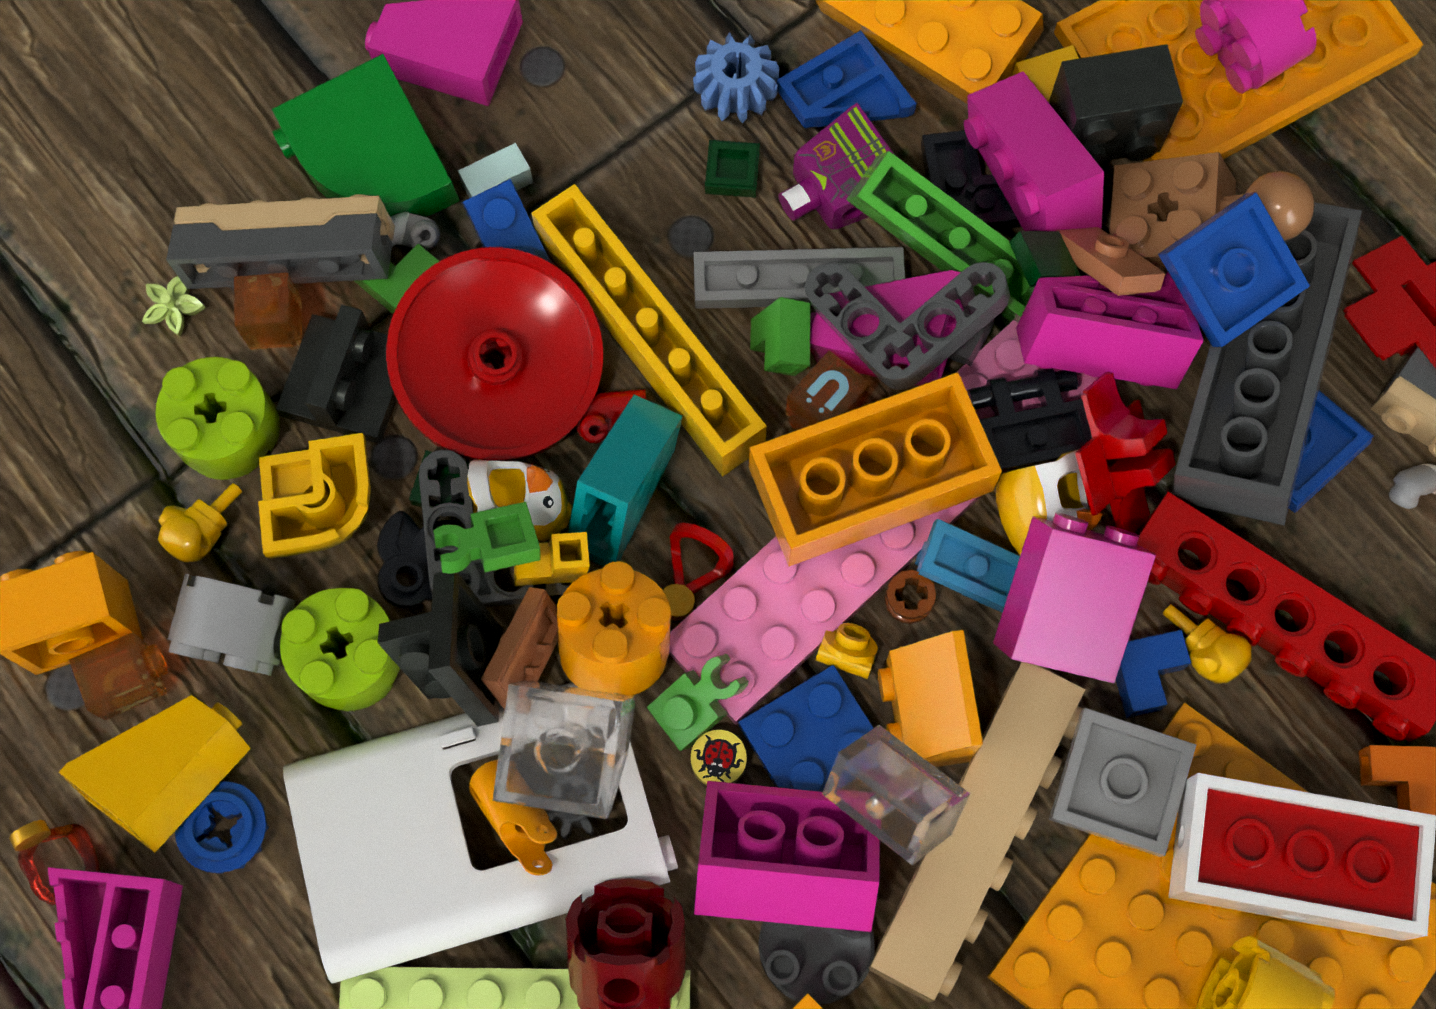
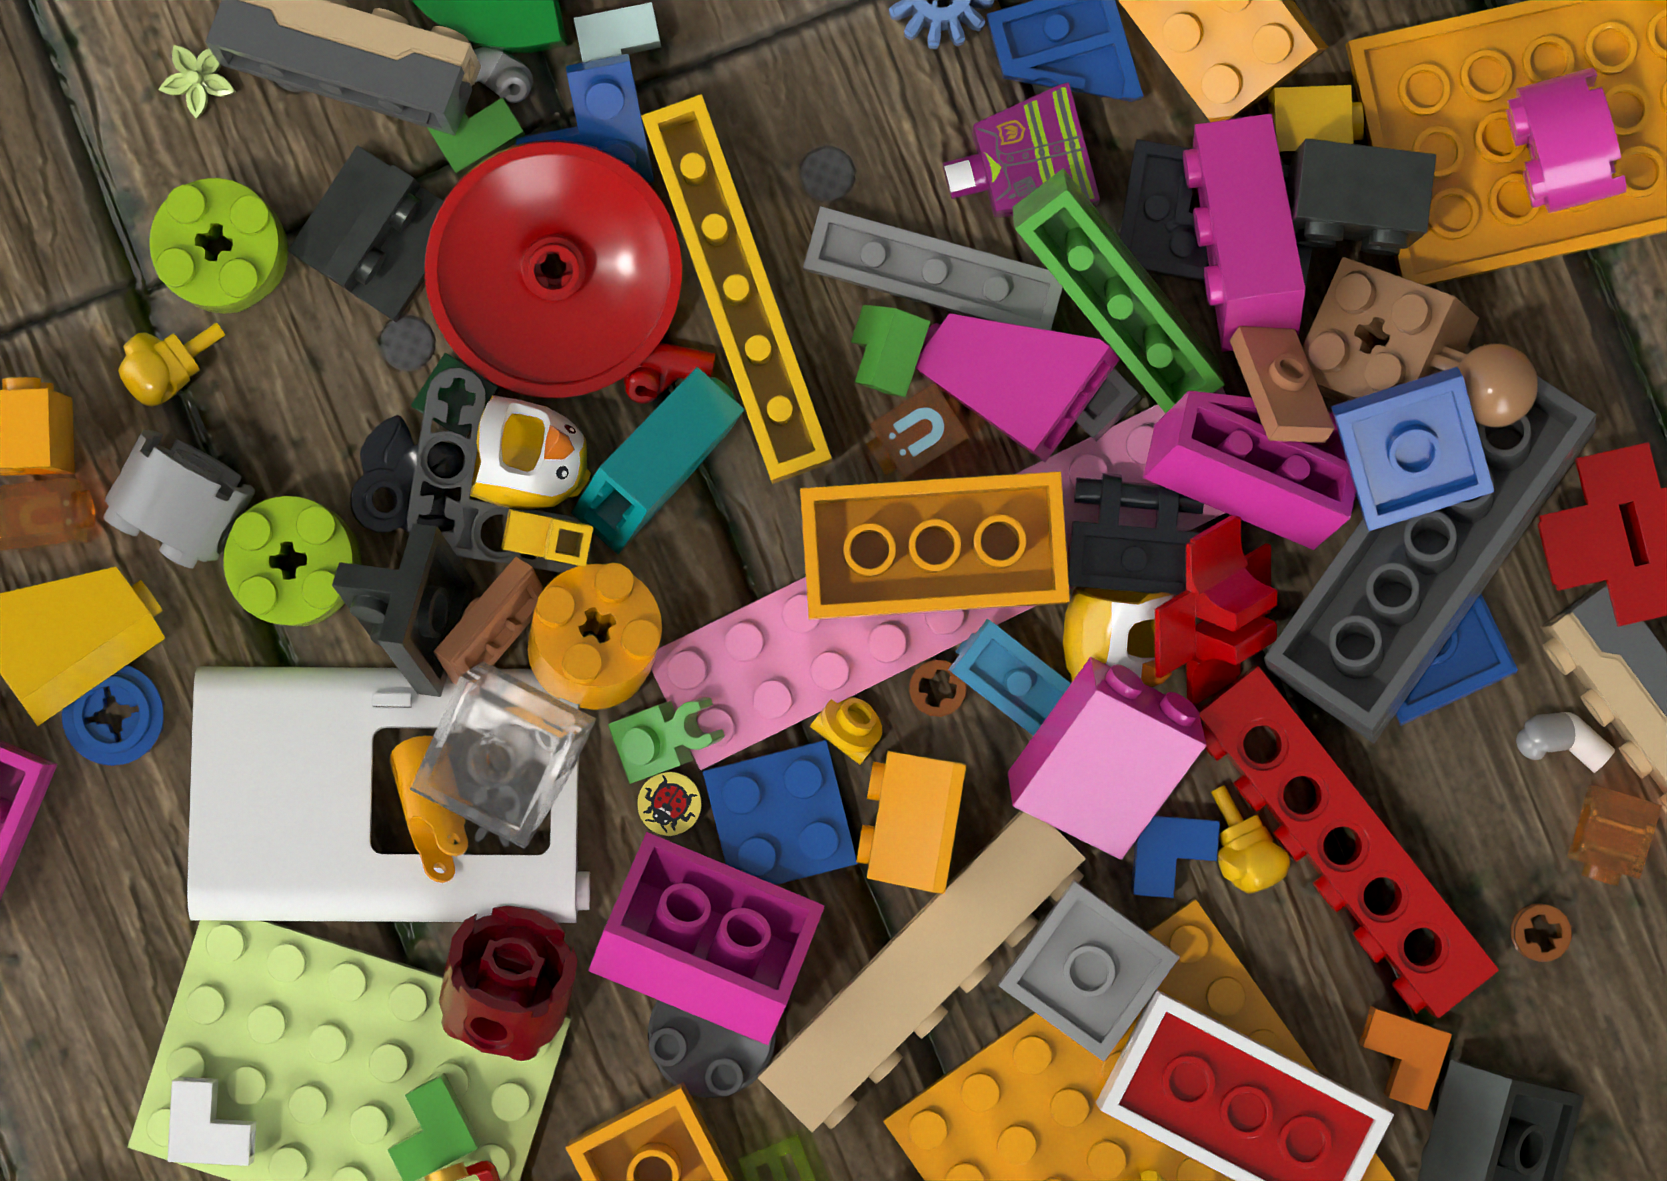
camera: 20 degrees right, 15 degrees up
(268, 311) = (307, 130): clear orange brick -> none
(314, 496) = (304, 377): yellow brick -> none
(497, 537) = (495, 506): bright green plate -> none
(680, 595) = (680, 610): red piece -> none
(732, 168) = (901, 105): dark green tile -> none
(895, 794) = (838, 913): clear brick -> none
(896, 337) = (1005, 399): dark grey beam -> none
(1042, 255) = (1209, 360): dark green tile -> none

